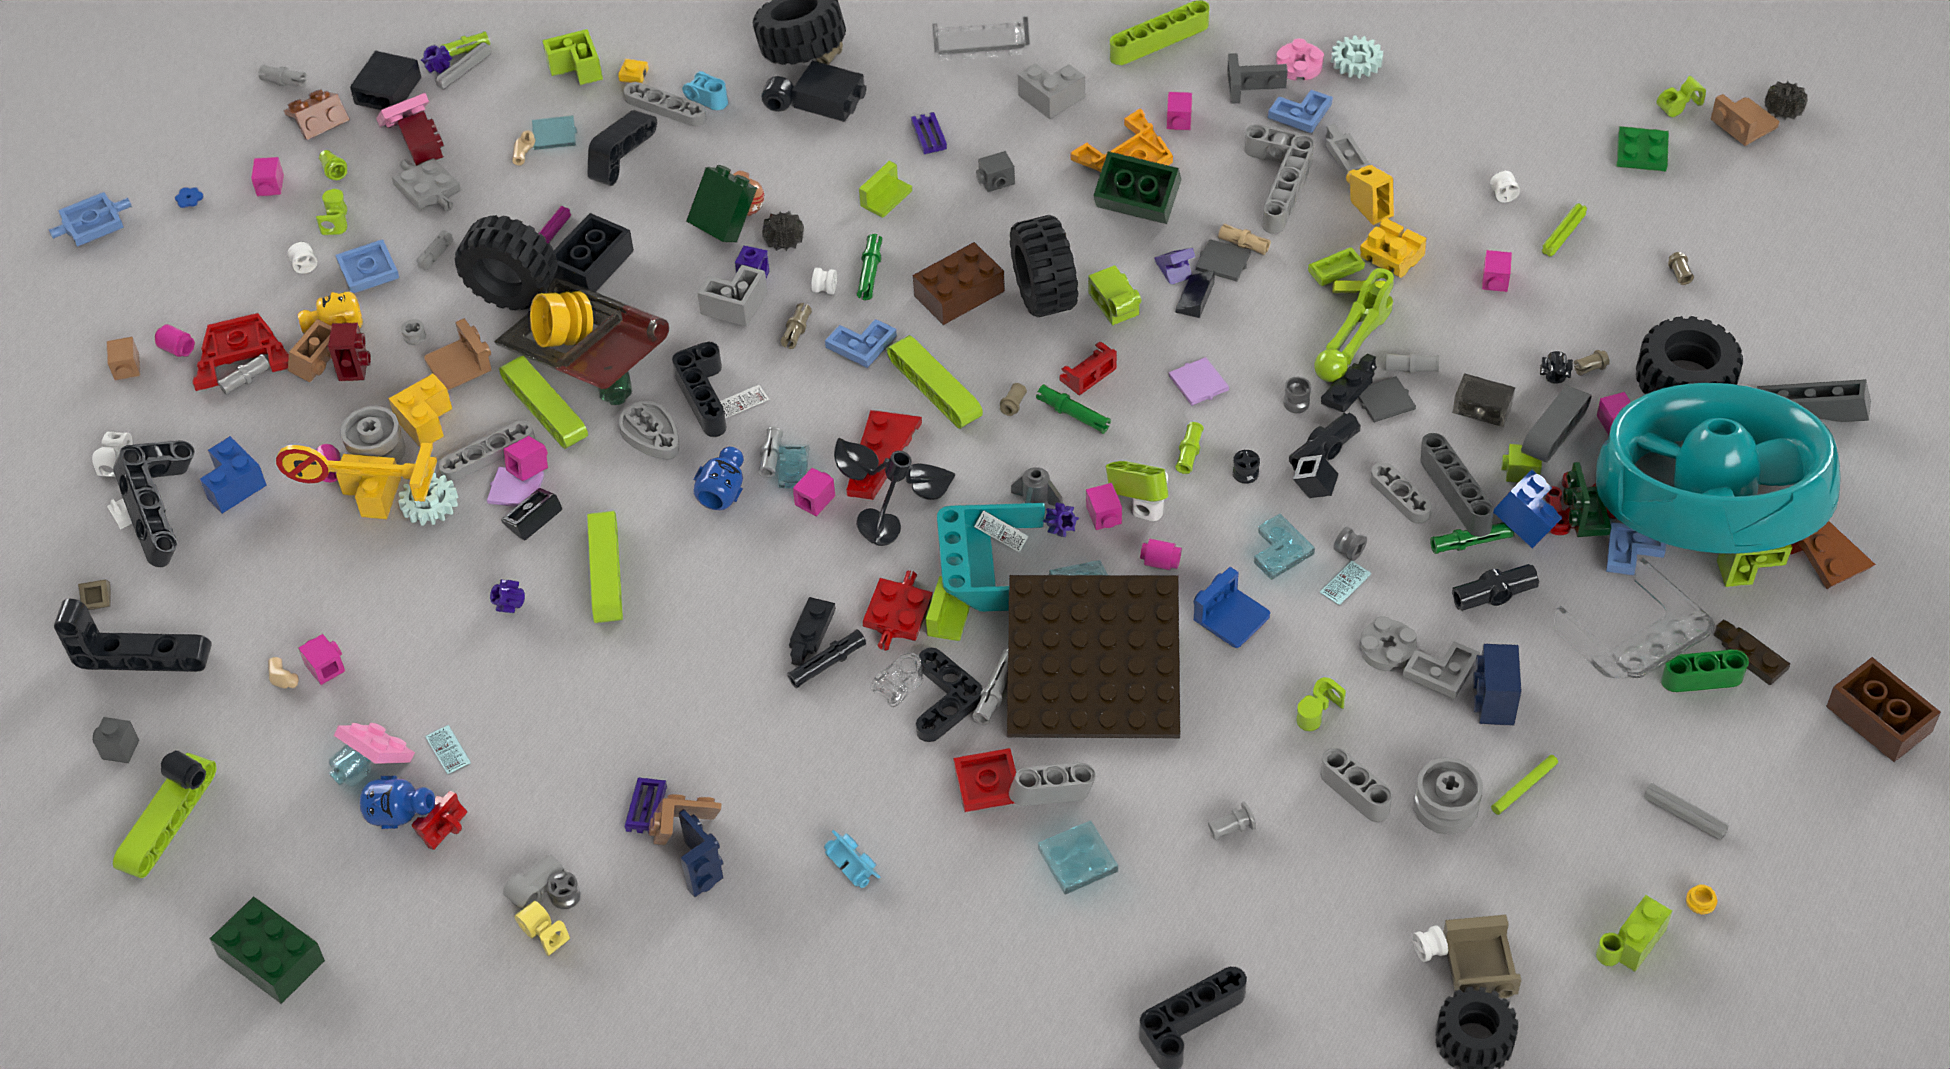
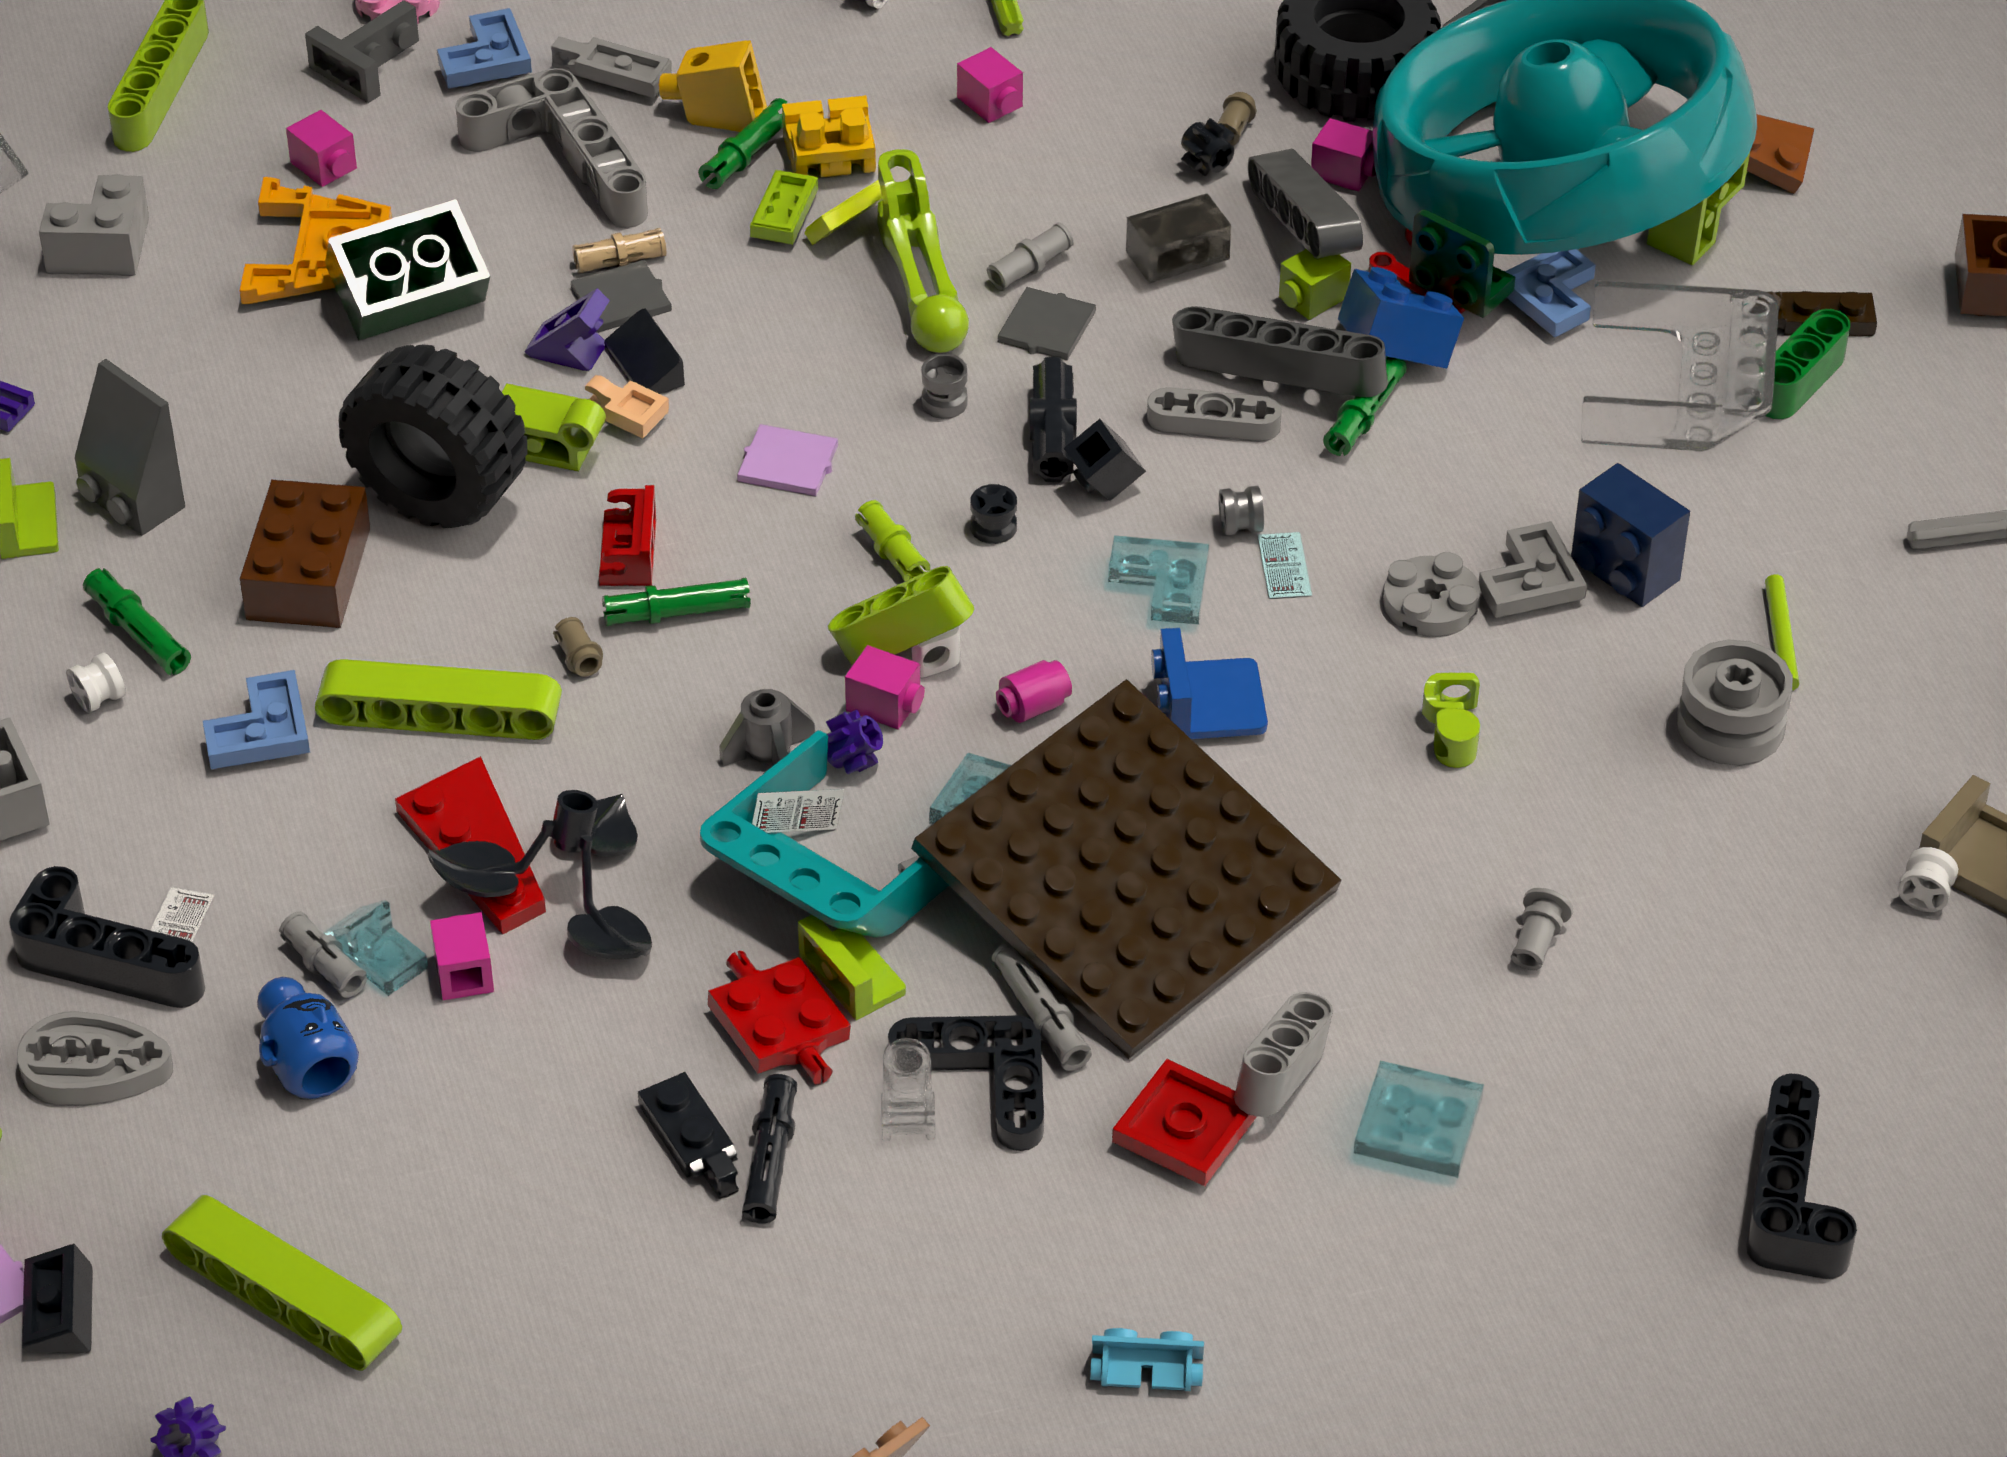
camera: 50 degrees left, 5 degrees down
(796, 325) = (131, 769): dark tan pin -> none
(934, 196) = (128, 452): none -> dark grey slope
(996, 171) = (167, 373): dark grey brick -> none
(1160, 312) = (630, 407): none -> light nougat plate
(1350, 227) = (736, 152): none -> green pin
(1351, 385) = (989, 333): black hinge -> none
(1359, 796) = (1616, 773): light grey beam -> none
(1495, 587) = (1467, 439): black piece -> none

